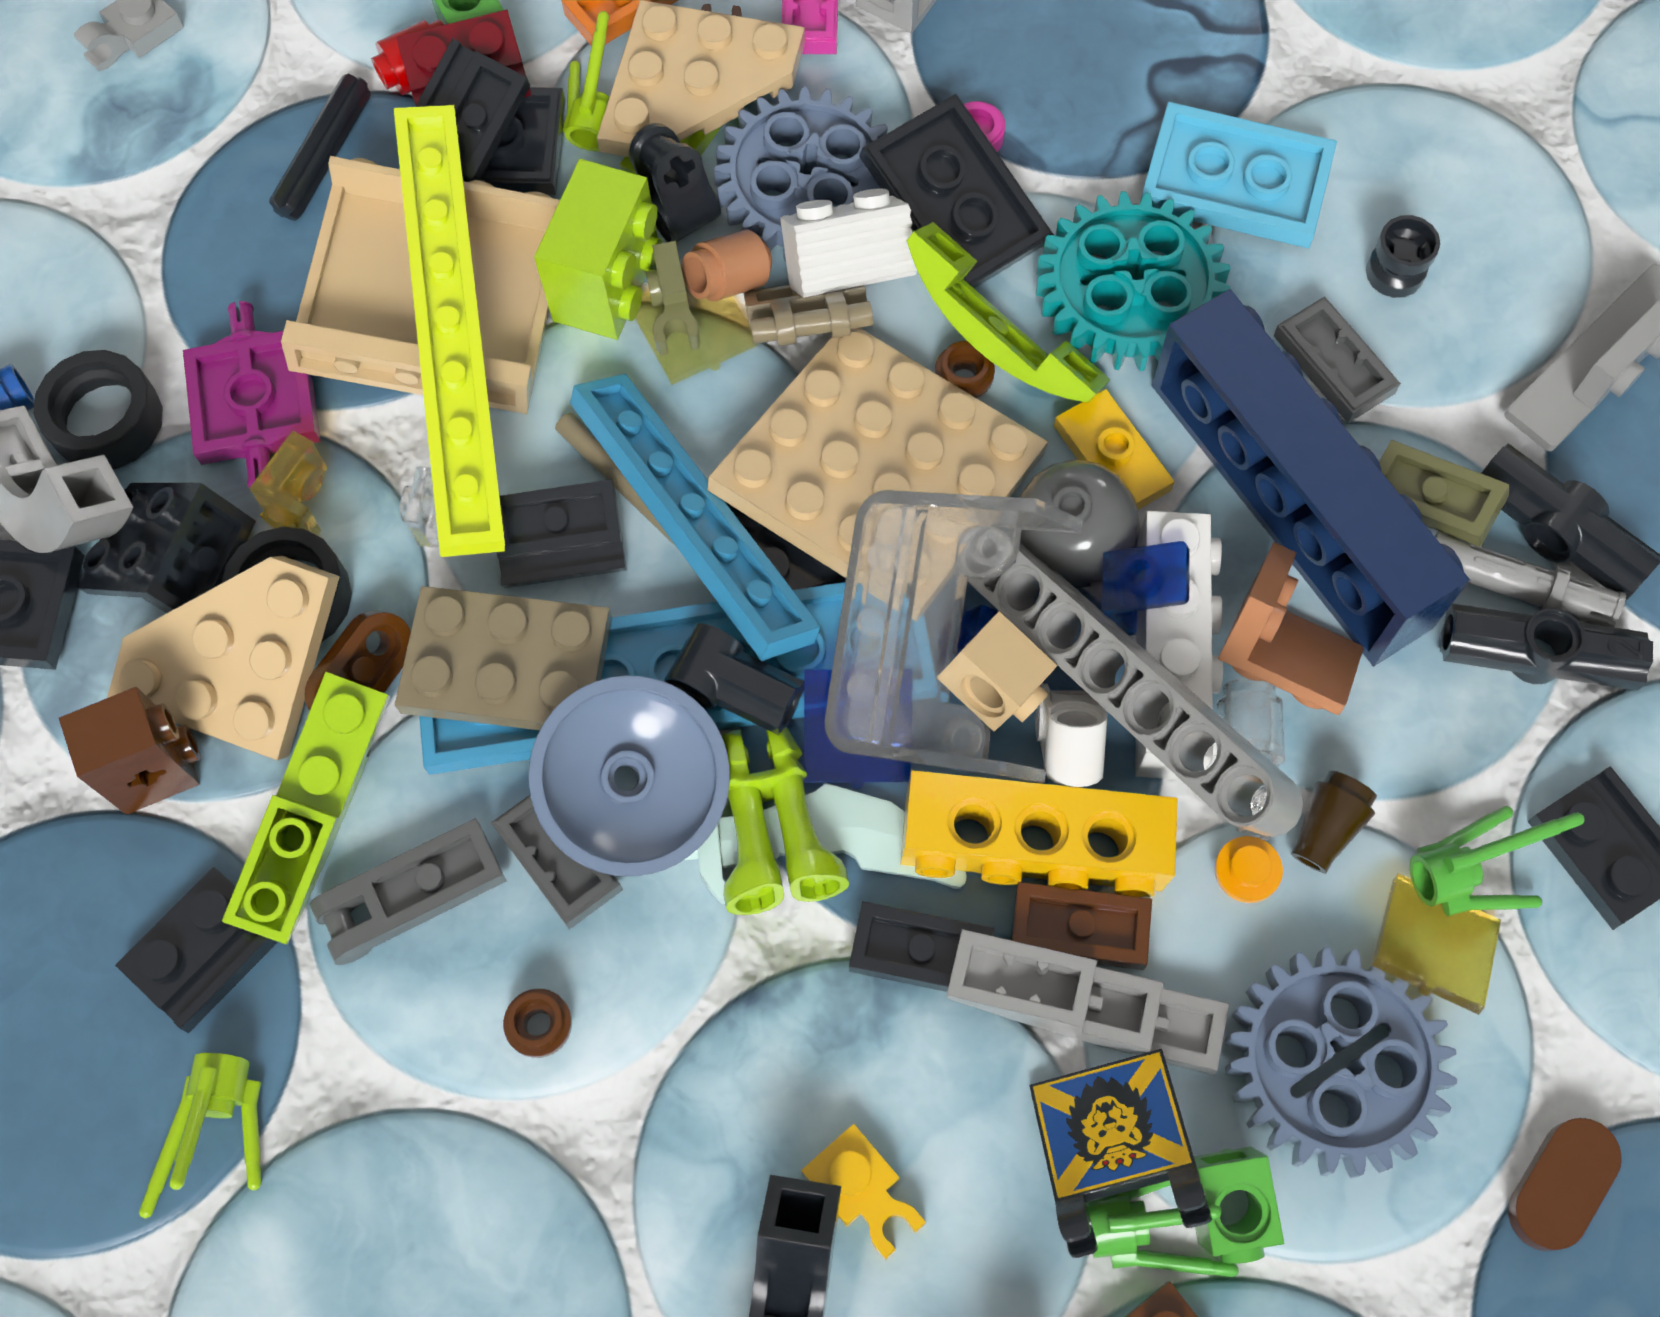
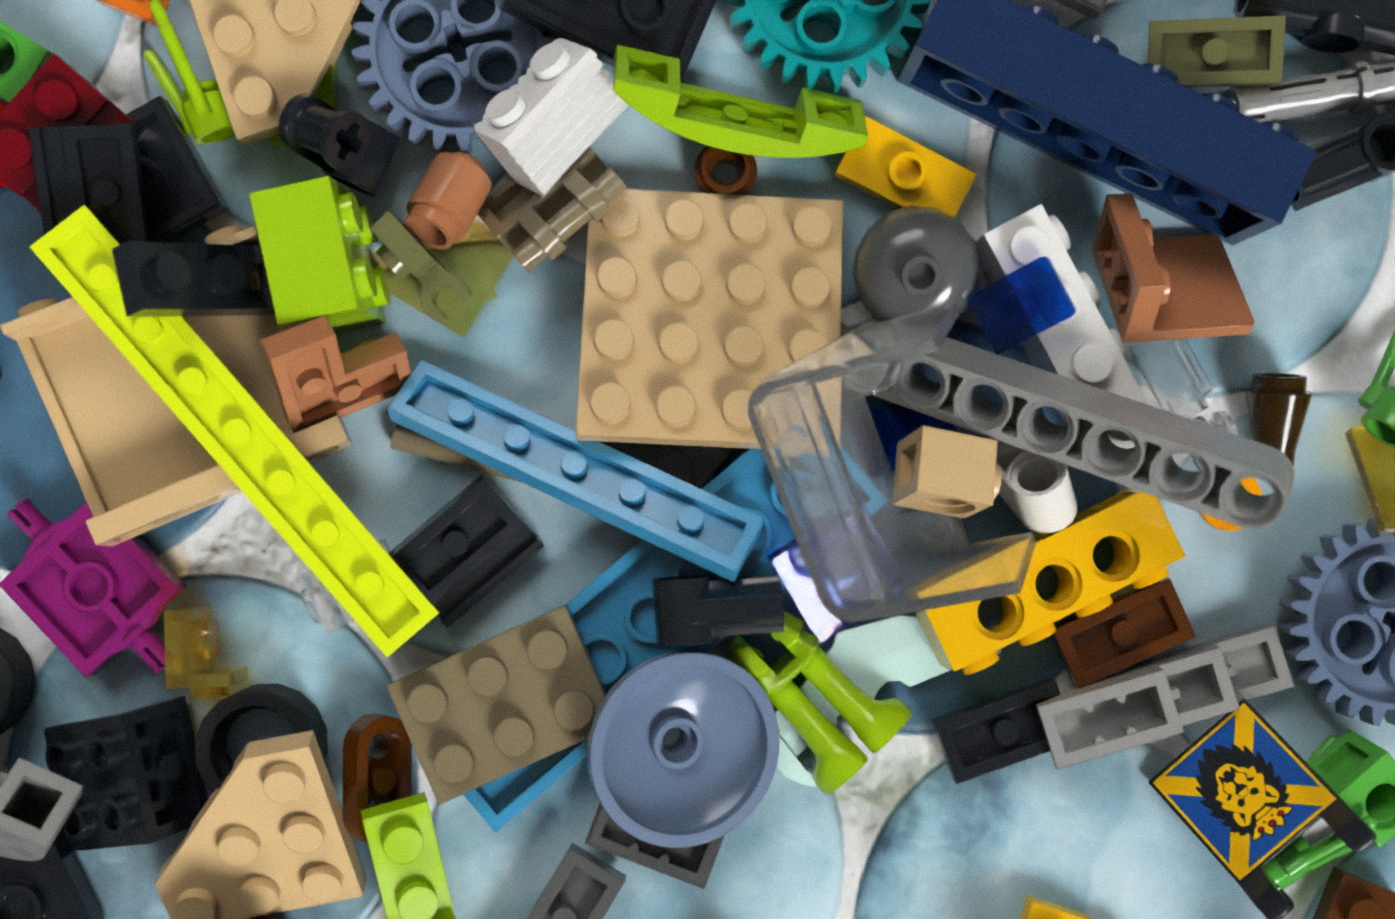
camera: 30 degrees left, 20 degrees up
(492, 197) = (191, 279): none -> black plate
(534, 332) = (321, 383): none -> nougat plate

